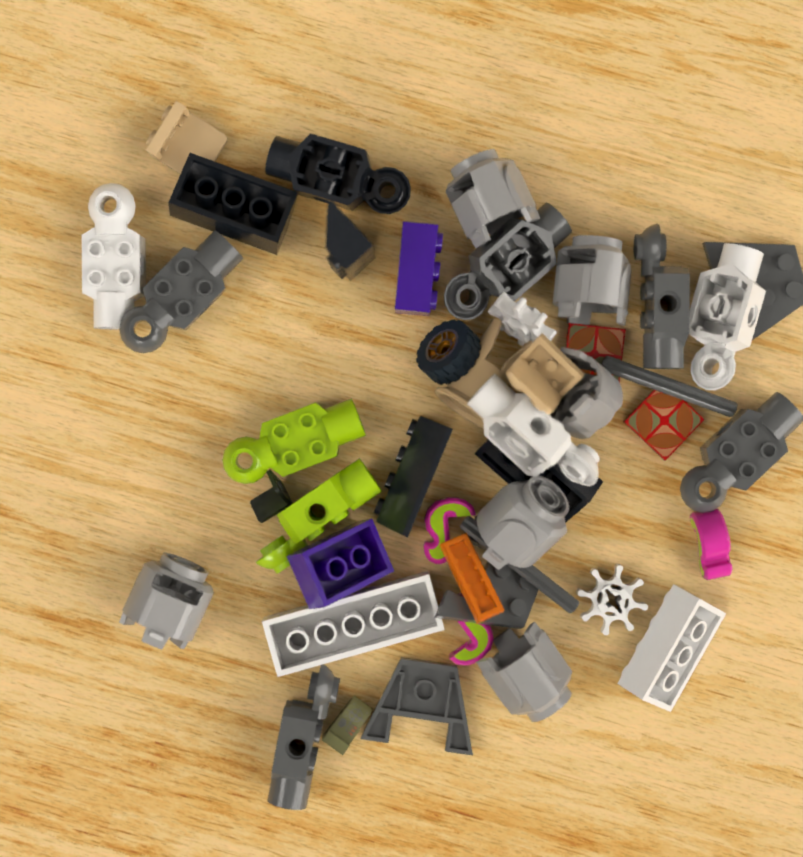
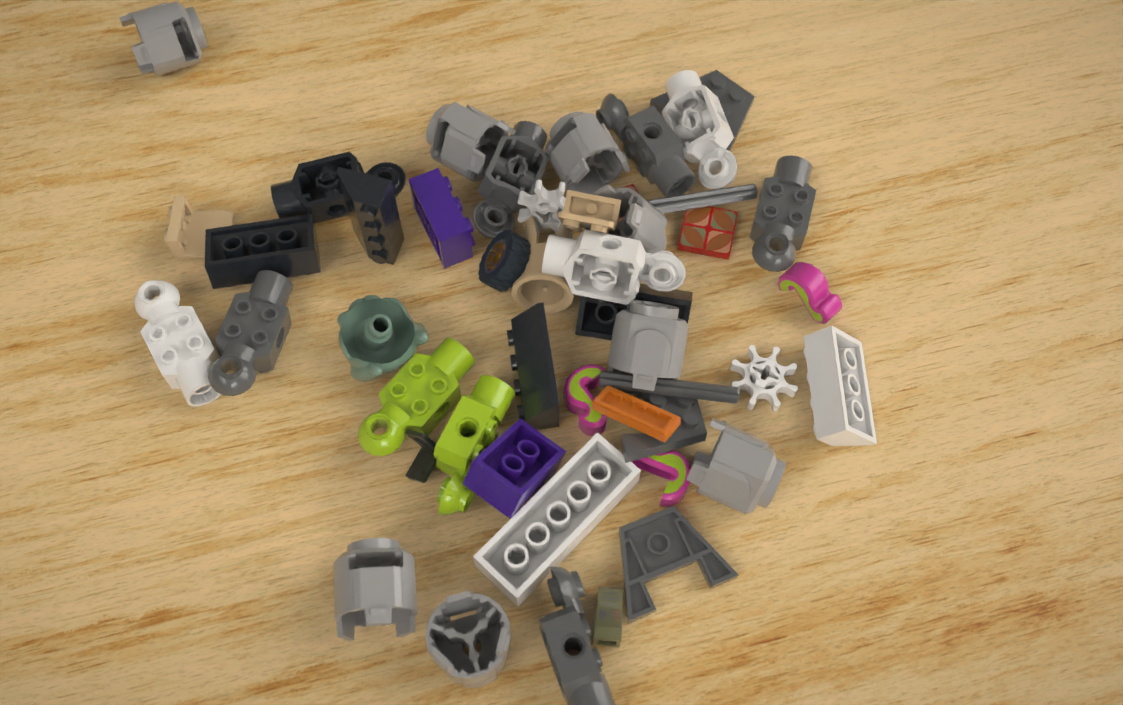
camera: 30 degrees left, 25 degrees down
(219, 705) = (447, 639): none -> light grey piece
(292, 367) = (378, 336): none -> sand green piece

